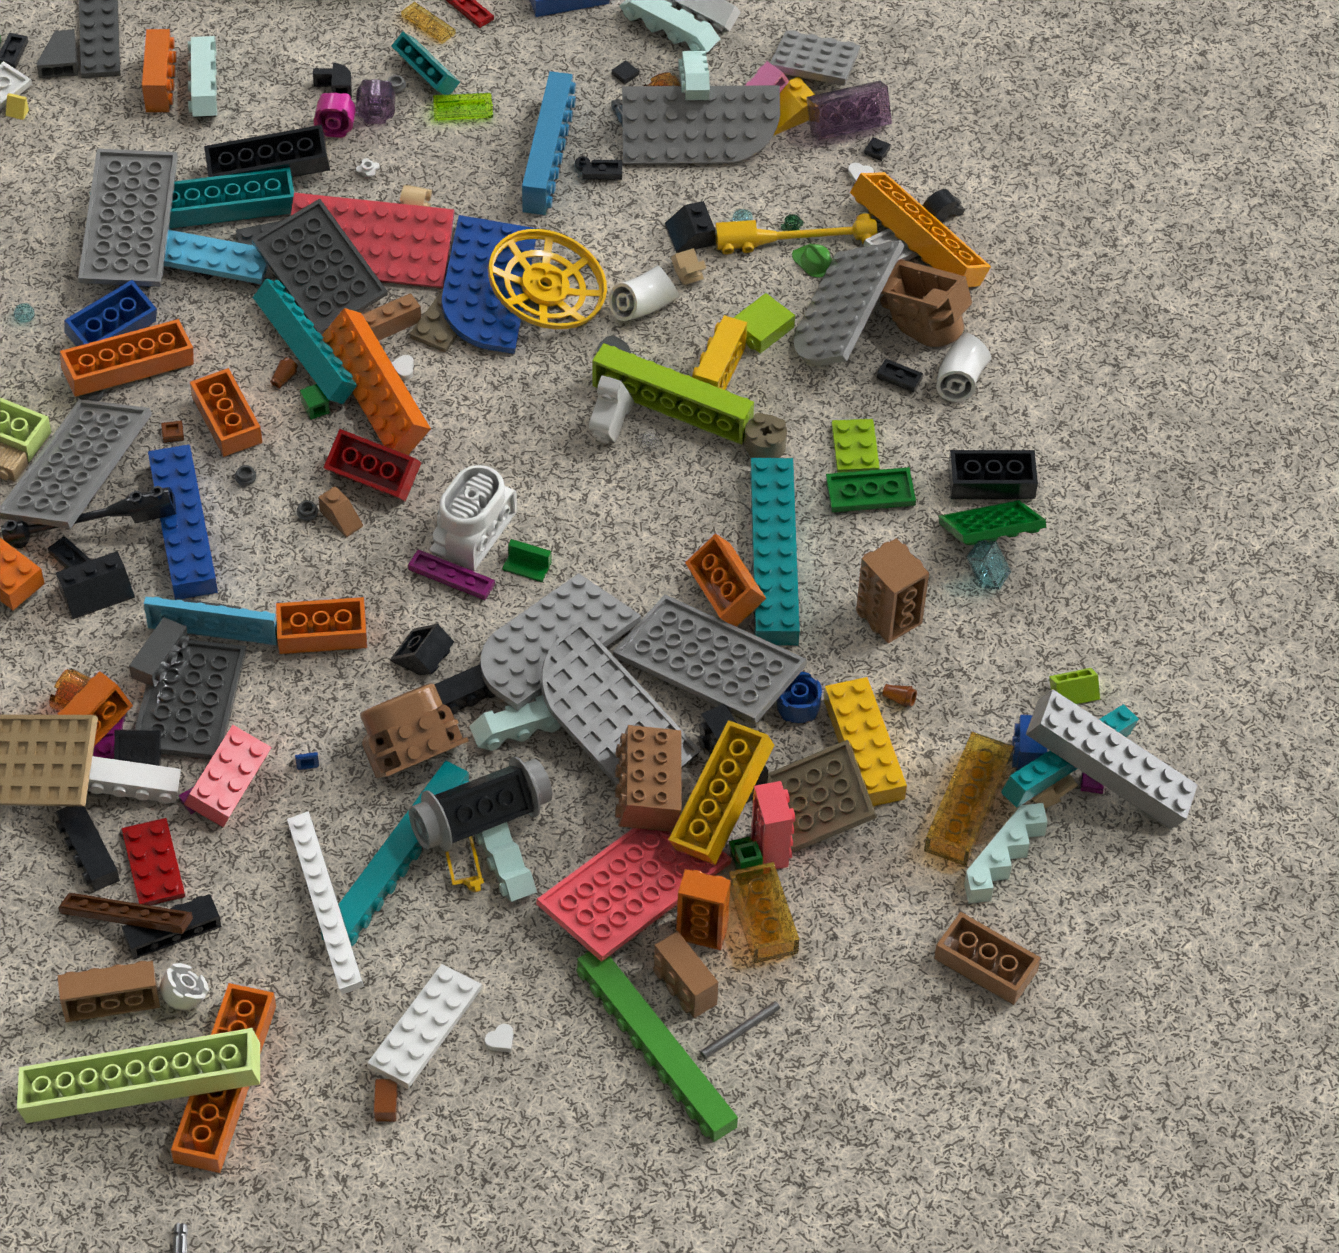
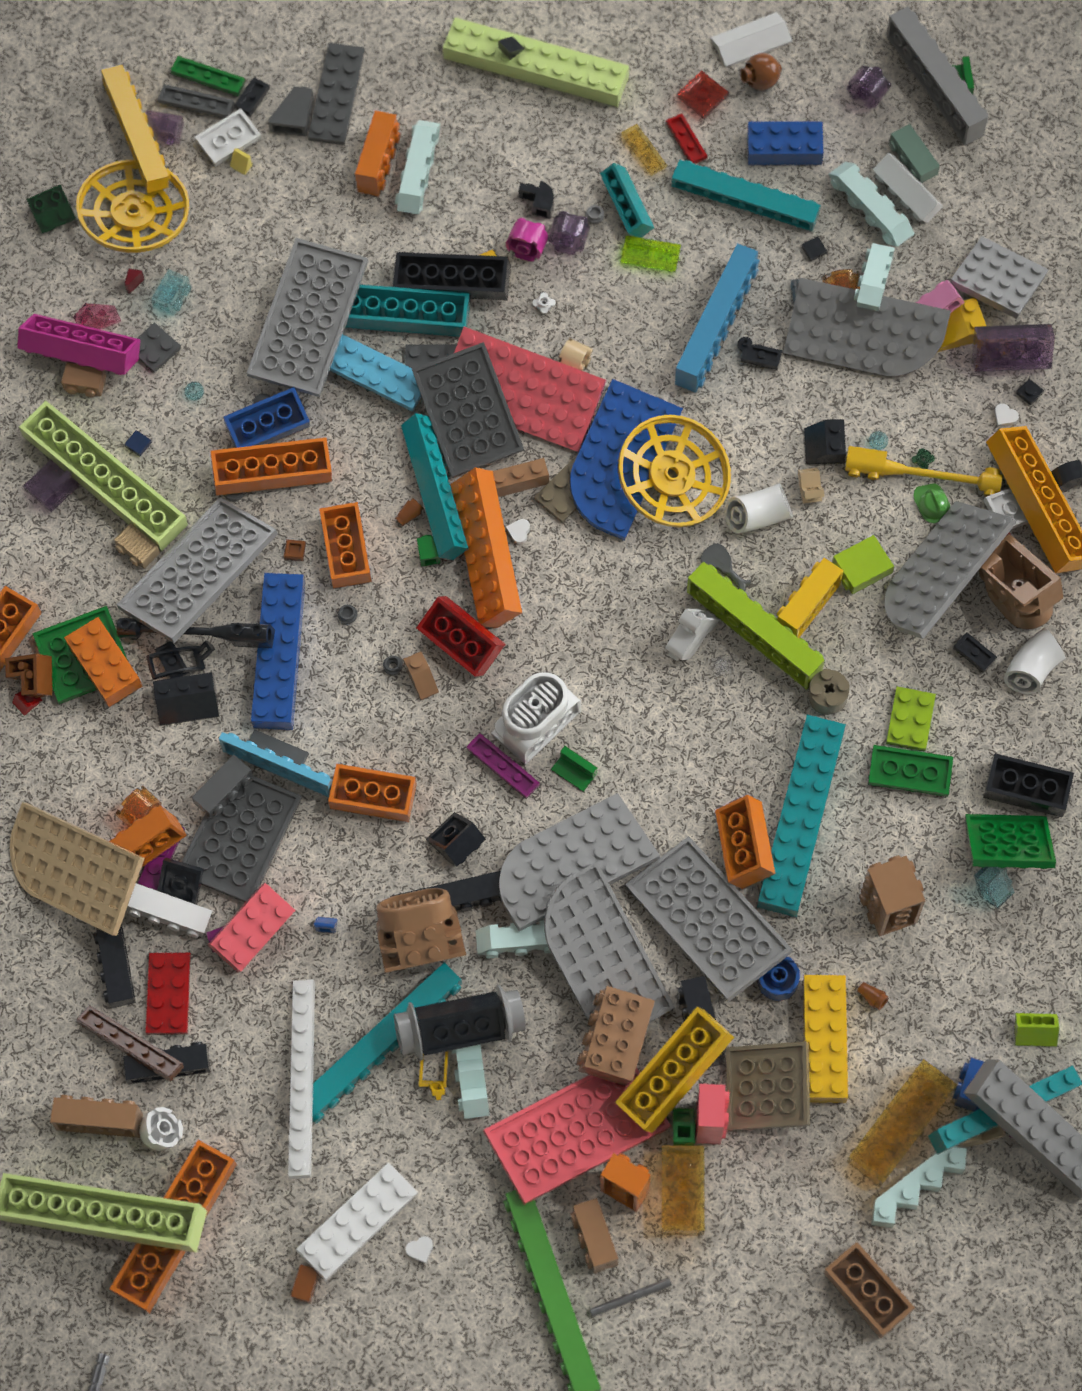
camera: 20 degrees right, 15 degrees up
(100, 549) = (199, 658): none -> black sword
(542, 39) = (746, 195): none -> teal brick

